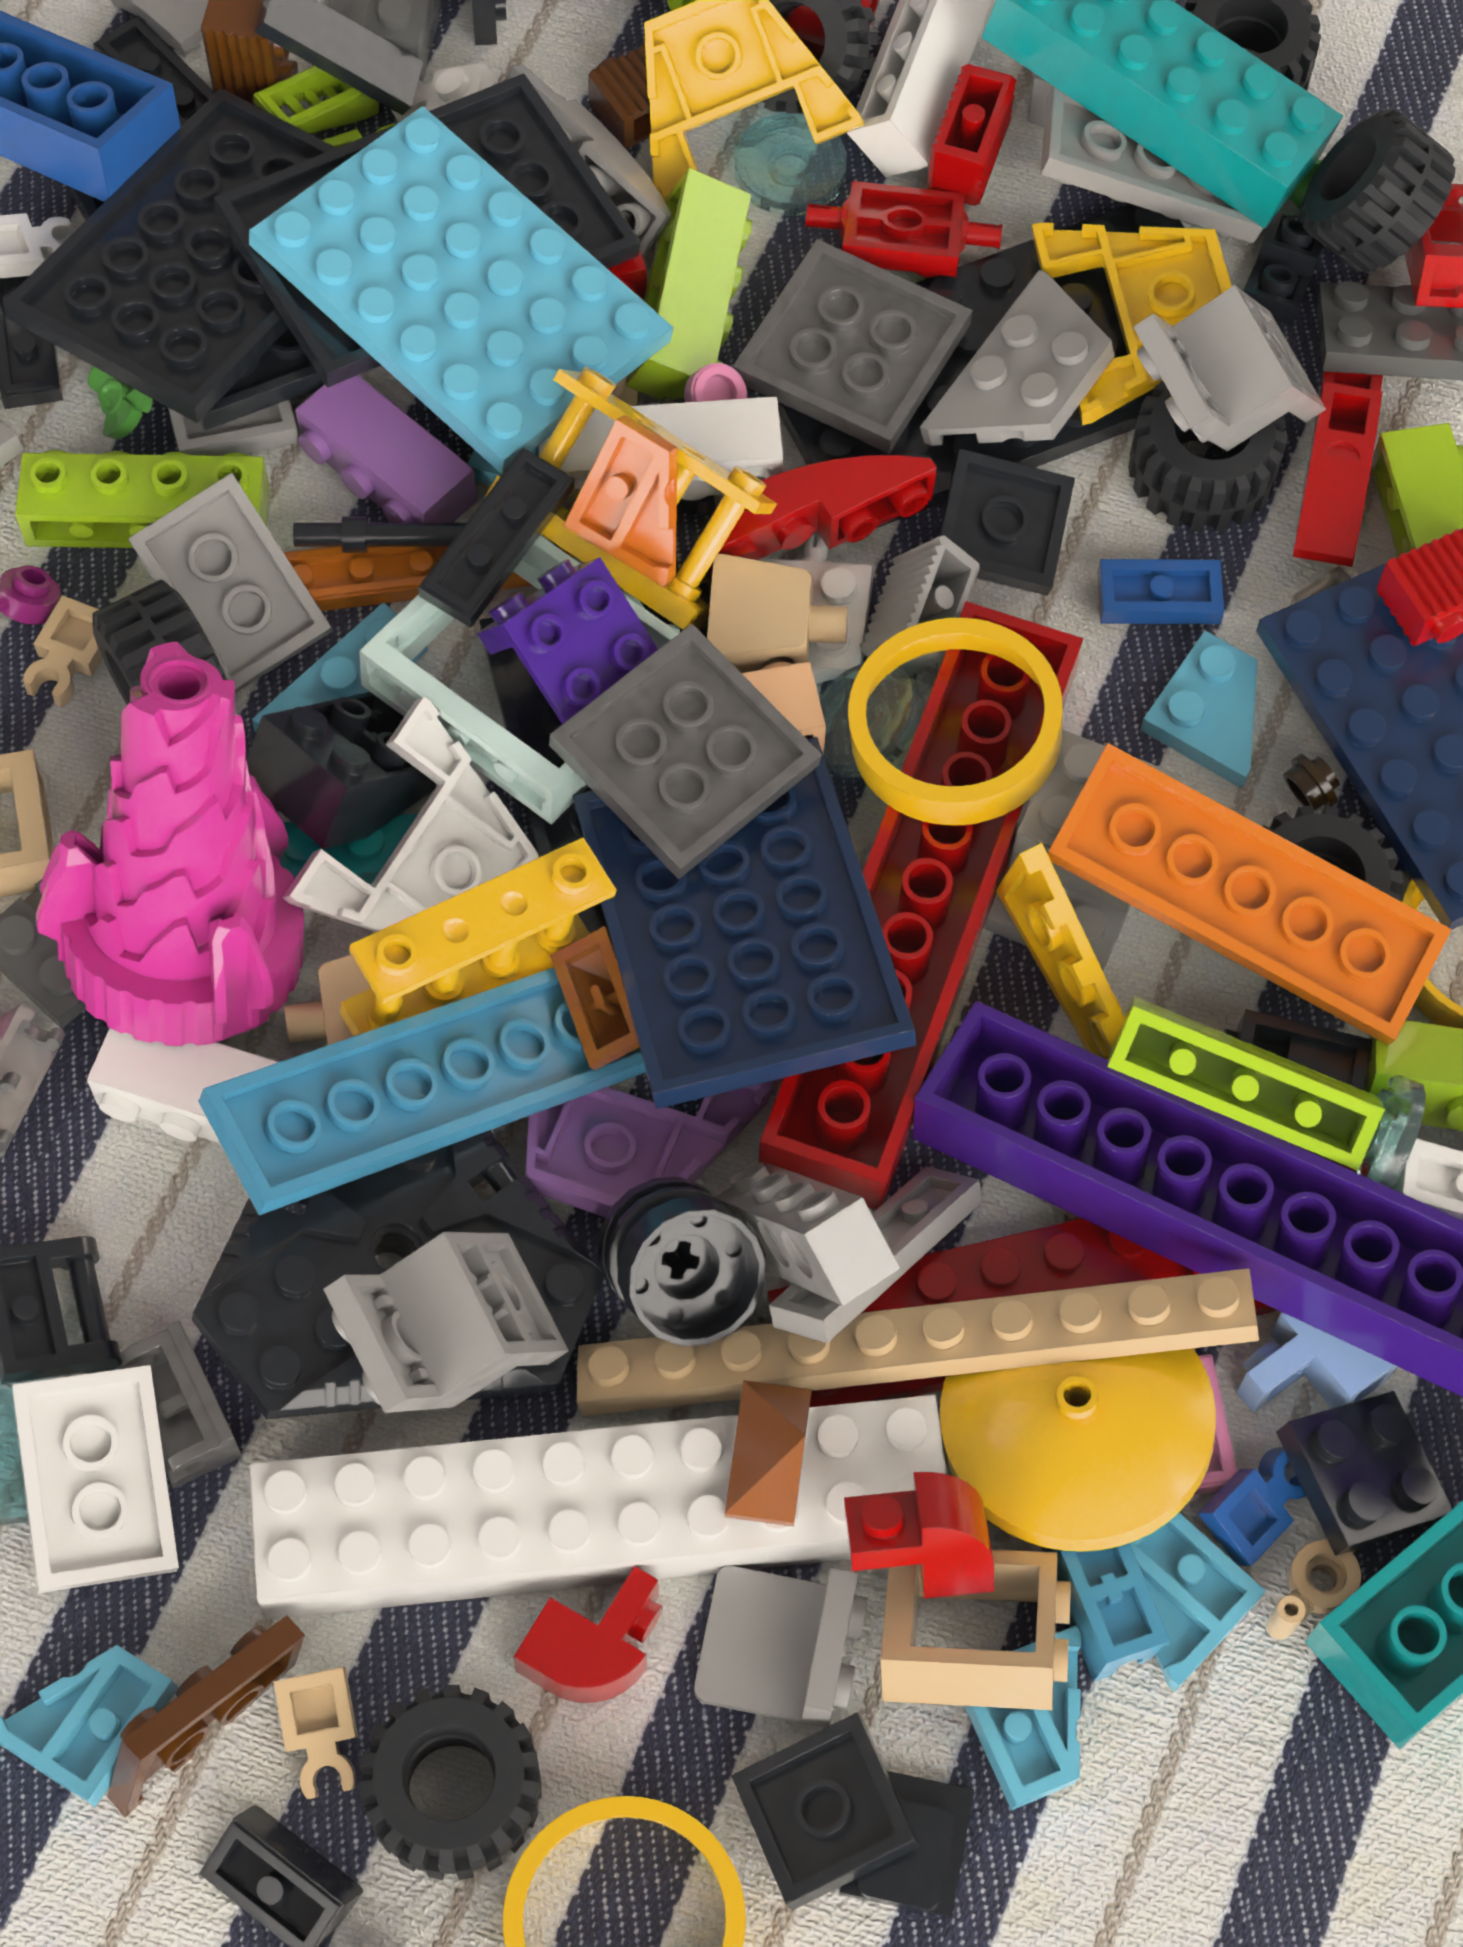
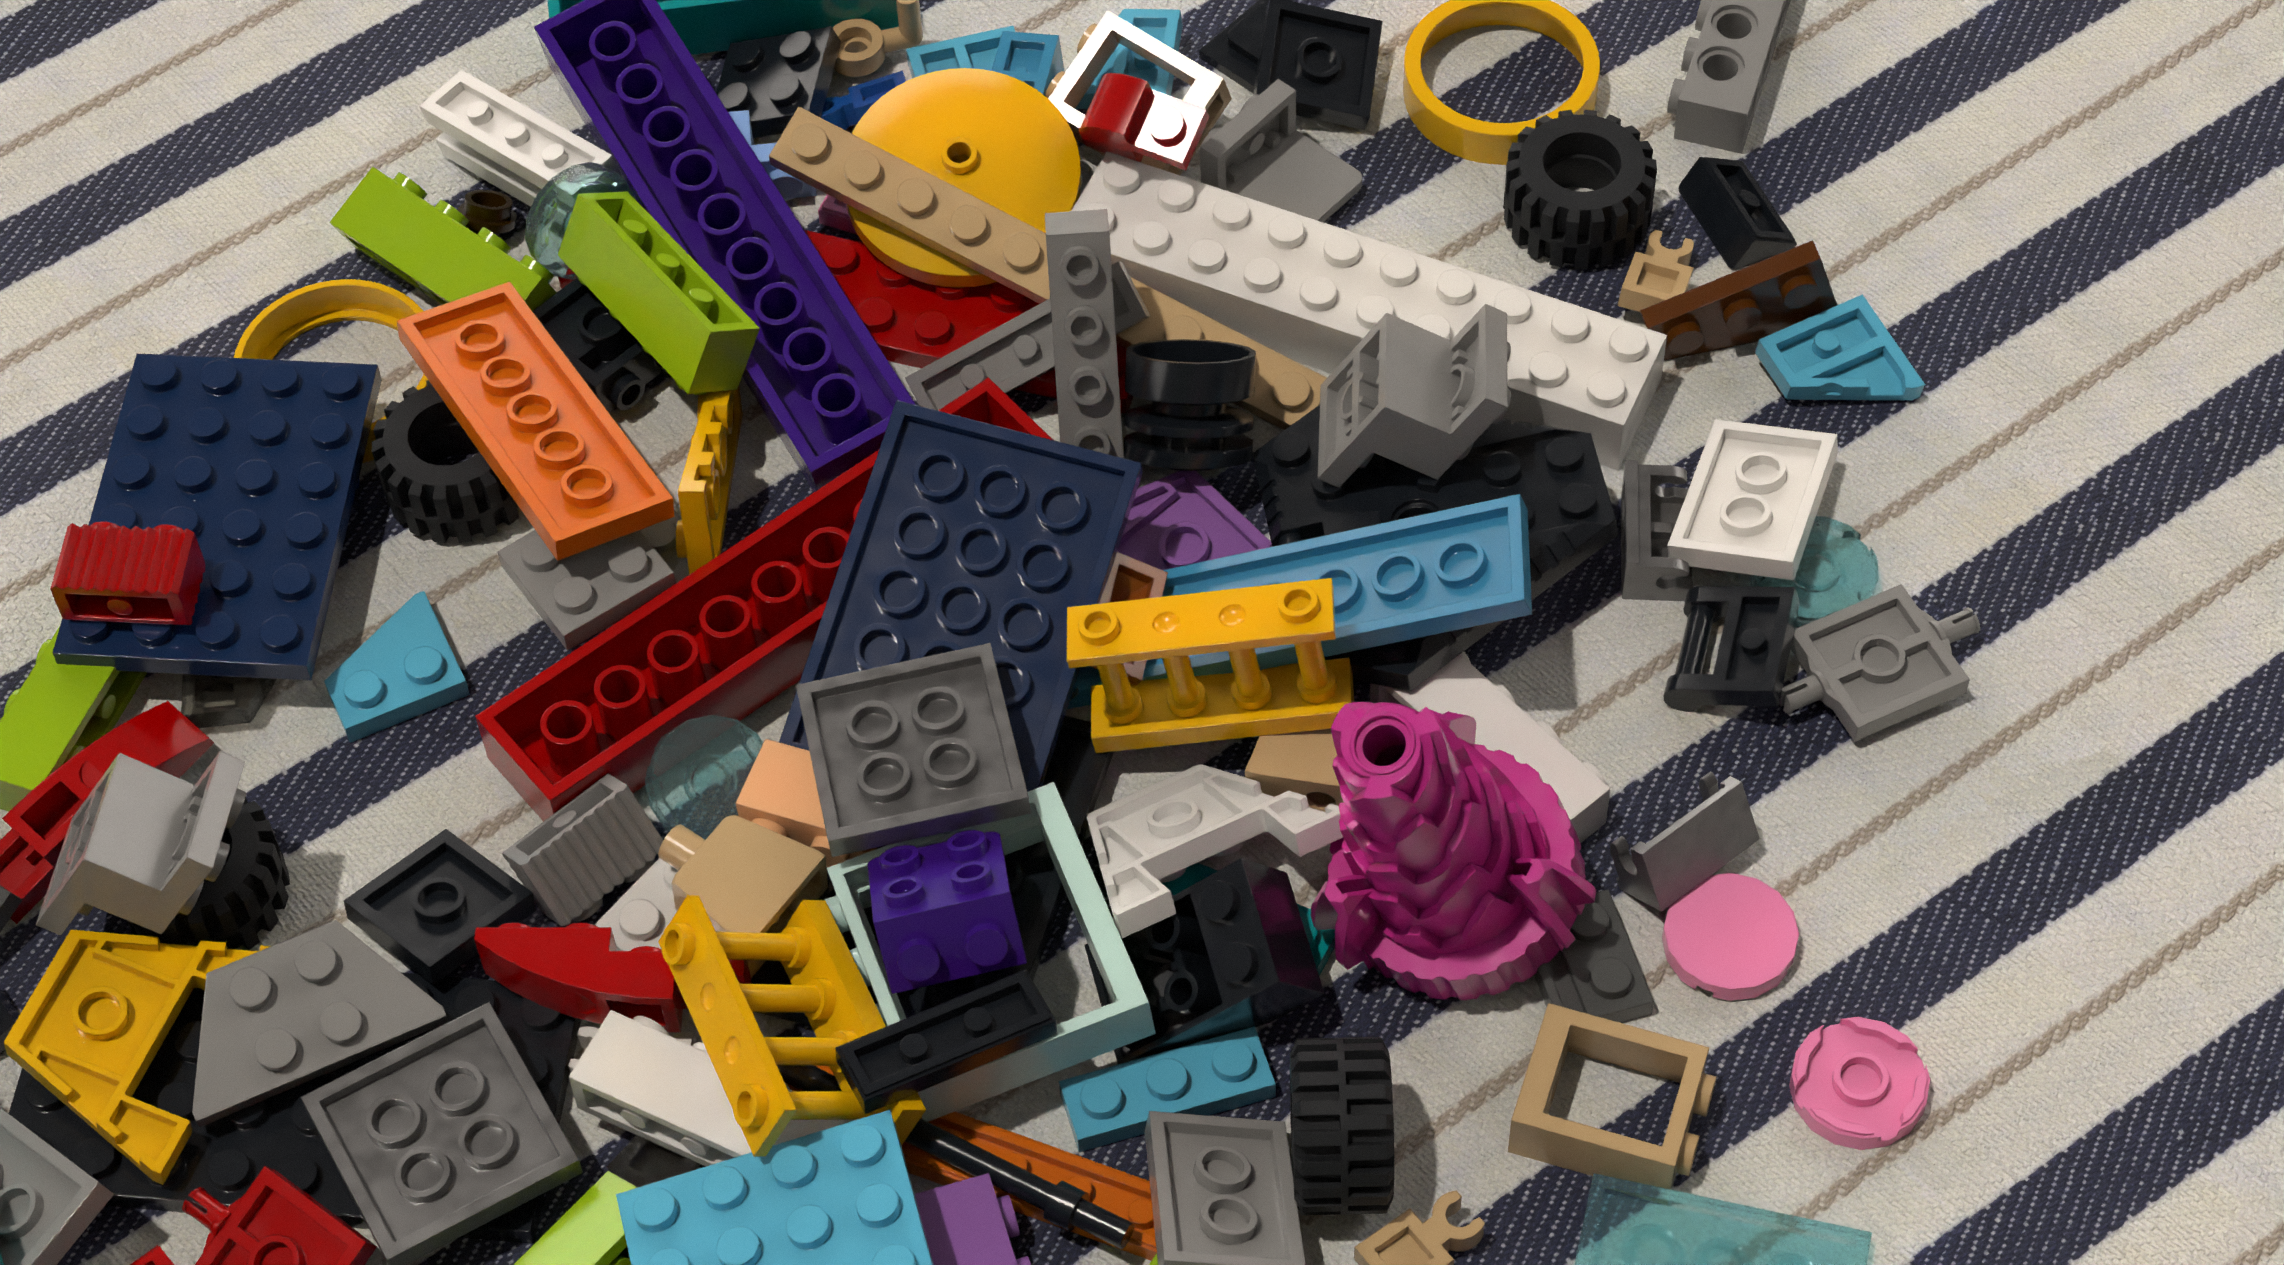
camera: 145 degrees left, 10 degrees down
(587, 1659) = (1430, 223): red brick -> none
(632, 501) = (802, 983): orange wing -> none
(715, 383) = (614, 1152): bright pink tile -> none
(768, 1453) = (1208, 234): dark orange slope -> none
(956, 803) = (669, 759): yellow piece -> none
(1160, 591) = (352, 782): blue plate -> none
(1312, 782) = (373, 557): dark brown plate -> none

